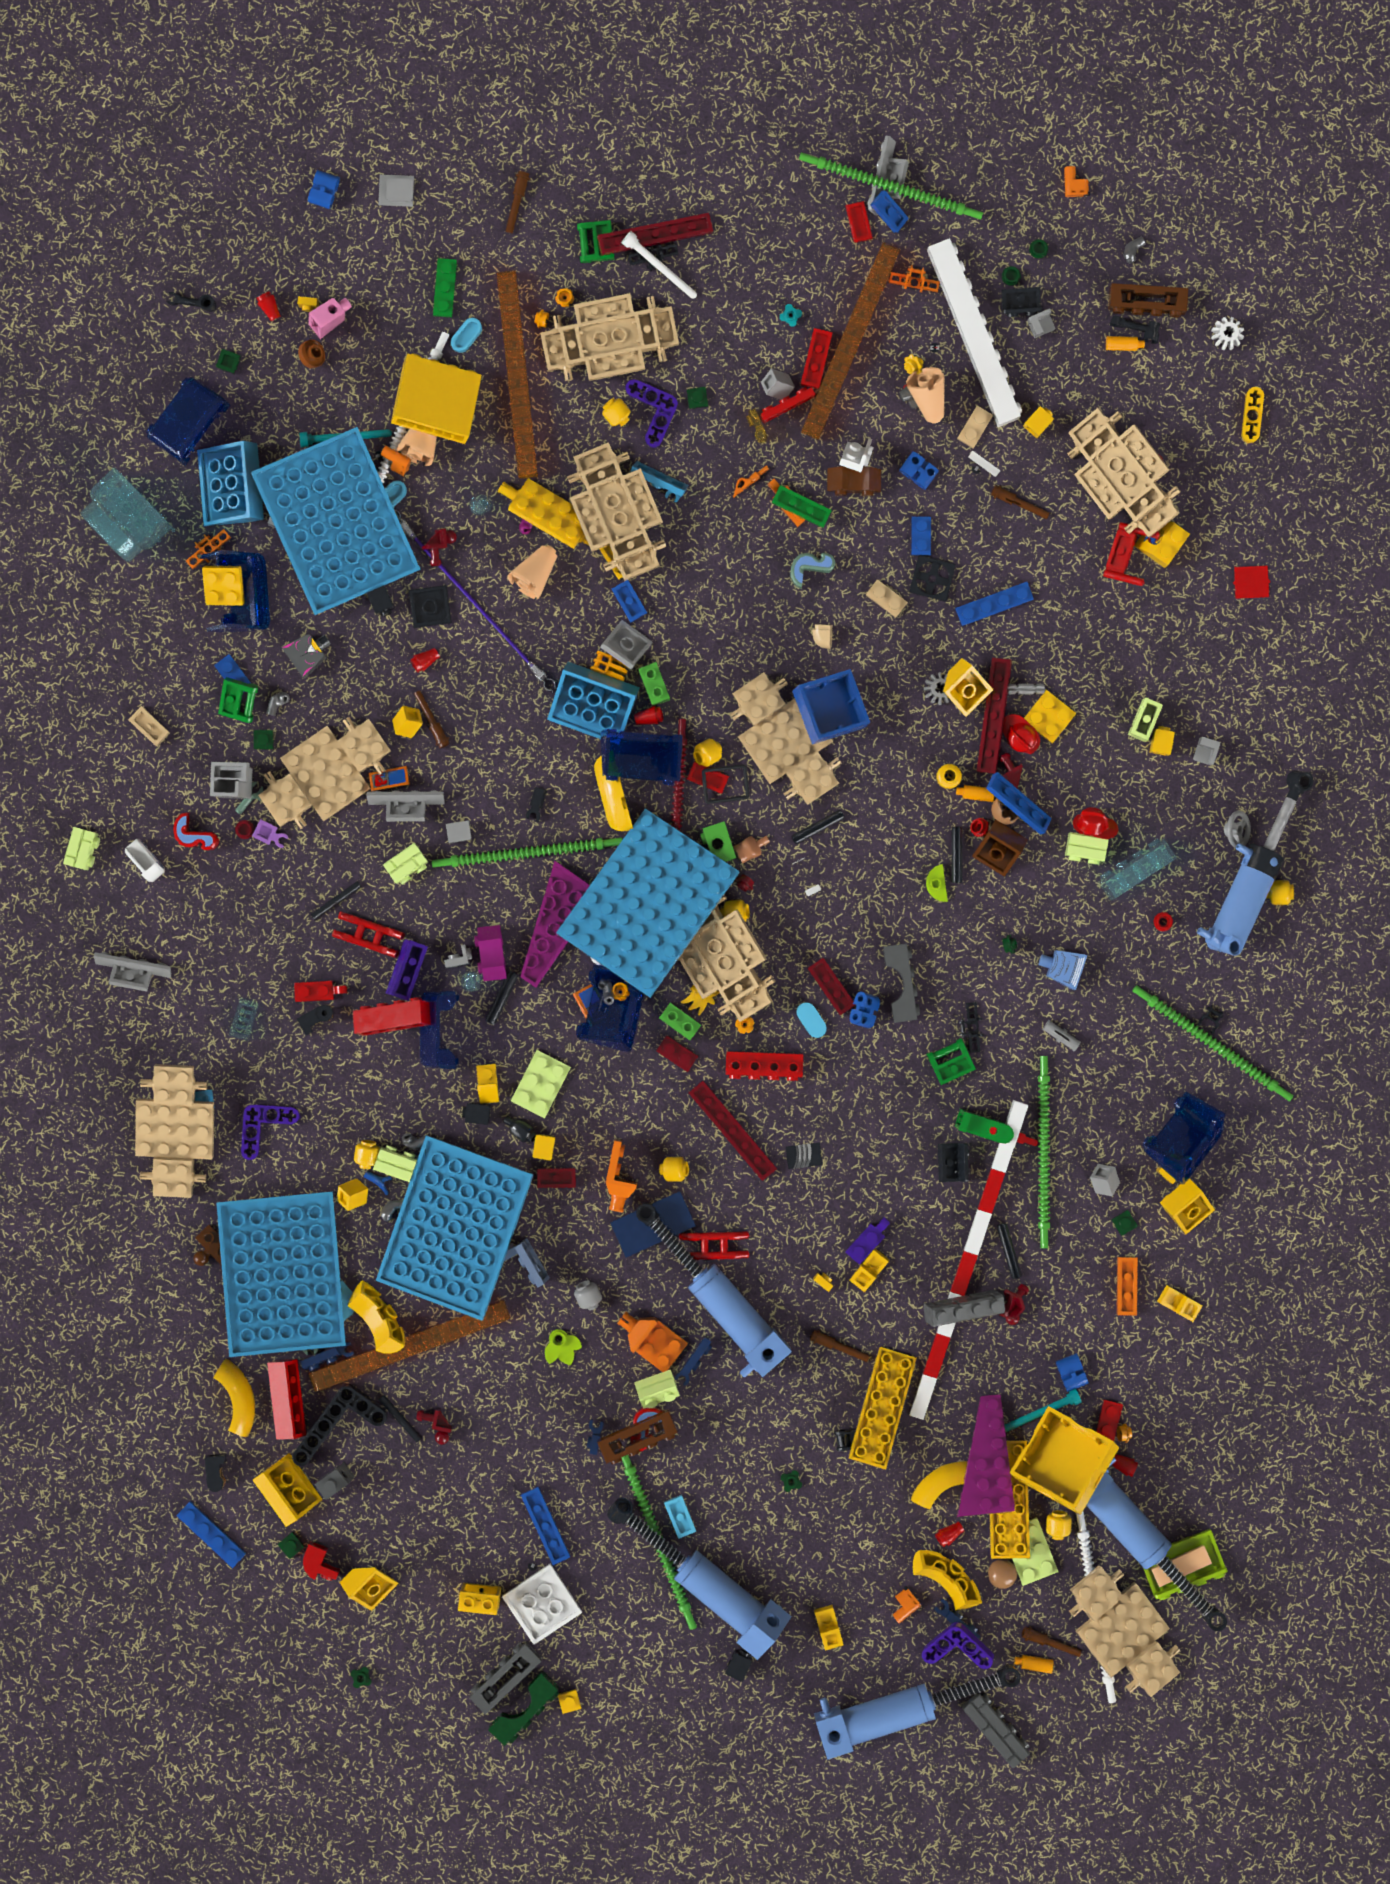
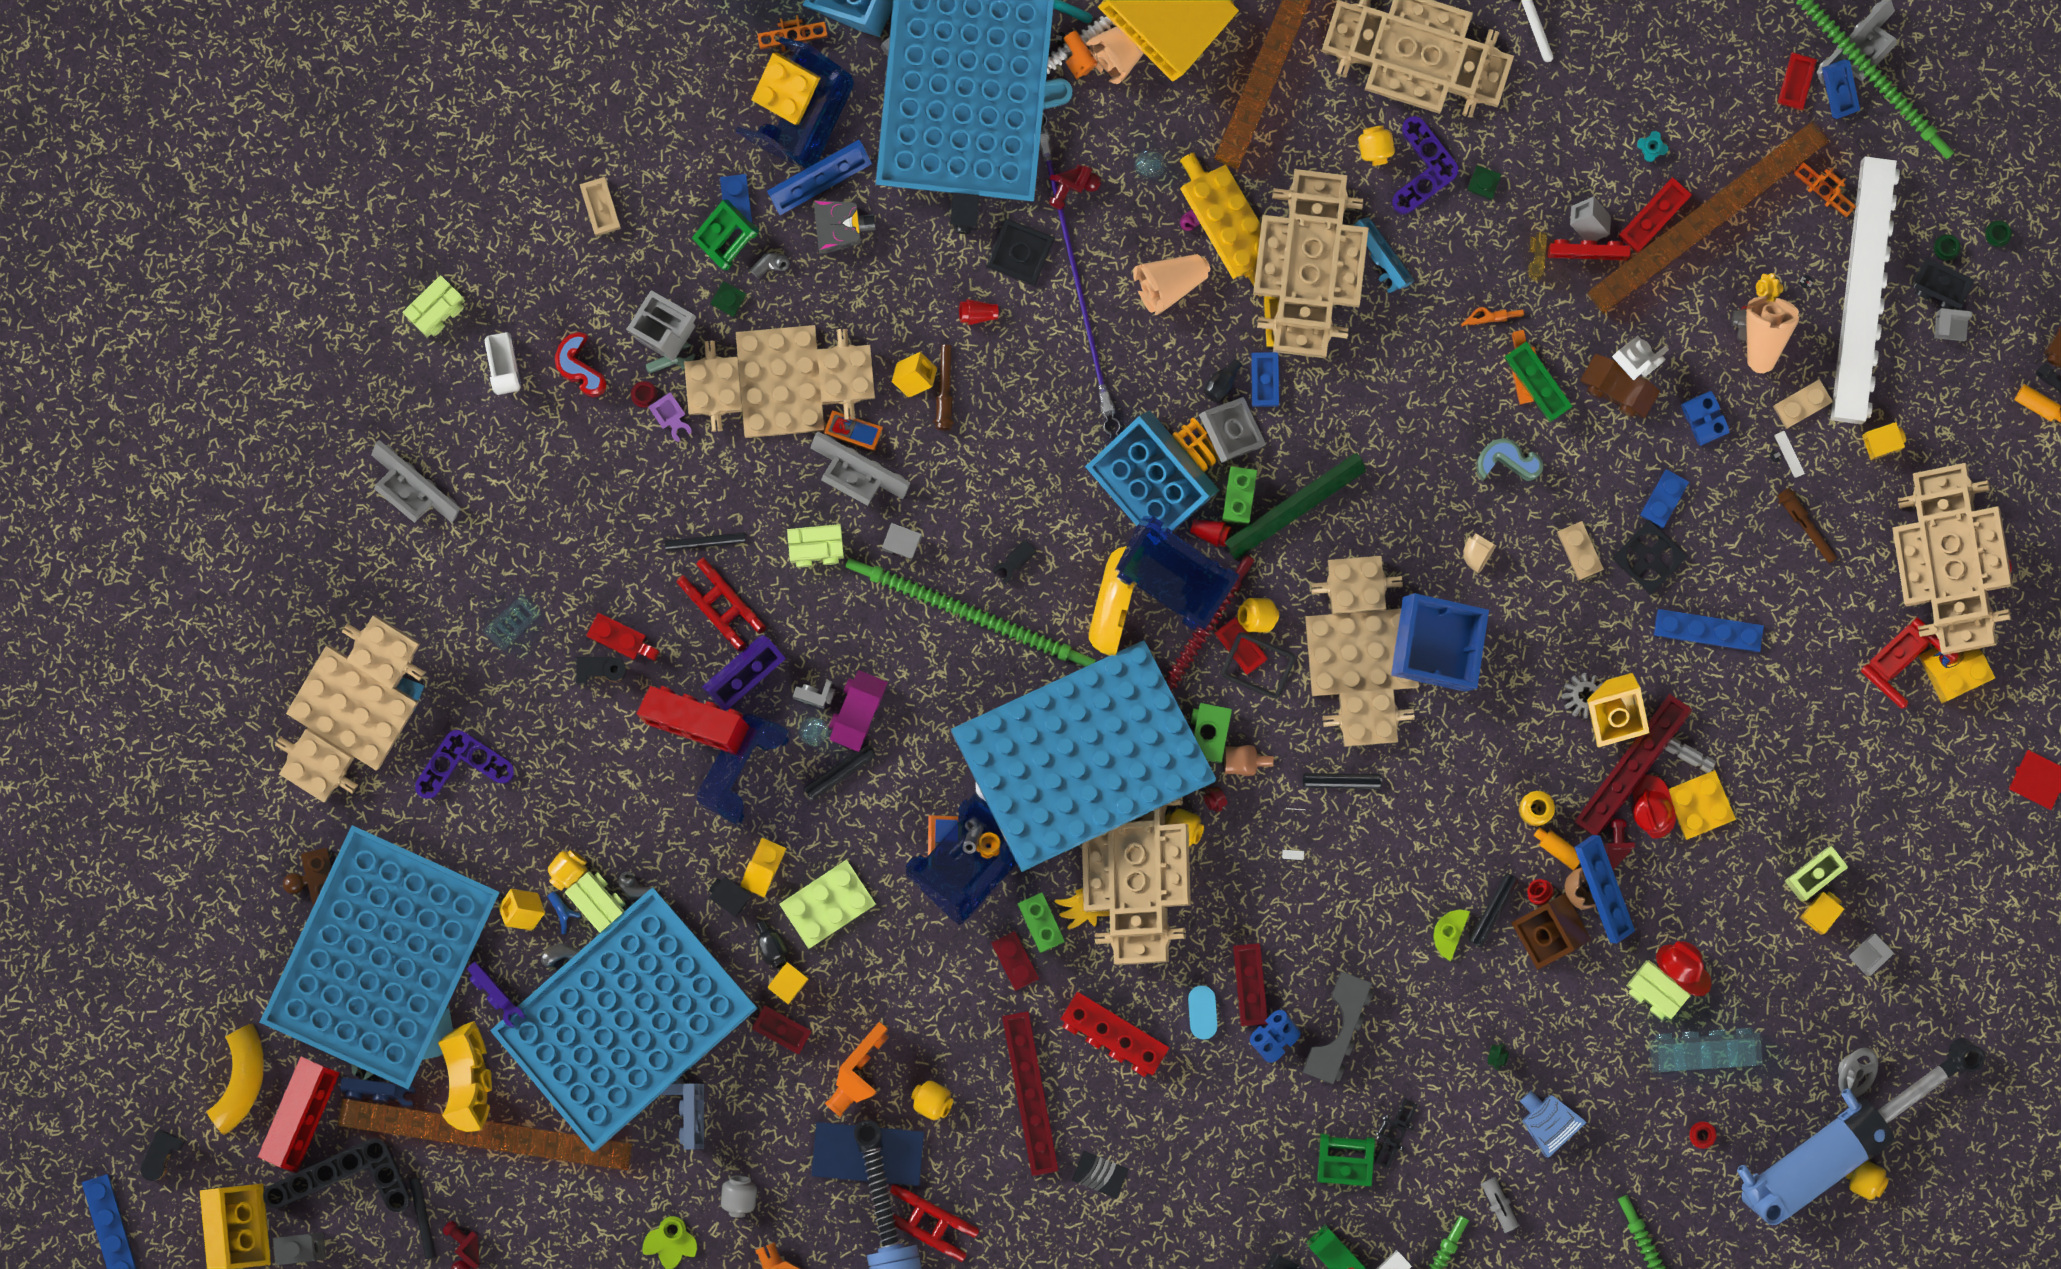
camera: 30 degrees right, 5 degrees down
(276, 630) = (819, 177): none -> blue plate
(367, 1256) = (497, 996): none -> dark purple plate
(560, 898) = (930, 738): magenta wing -> none
(603, 617) = (1222, 382): none -> black piece
(693, 670) = (1295, 506): none -> dark green tile
(743, 1029) = (1118, 979): light orange plate -> none

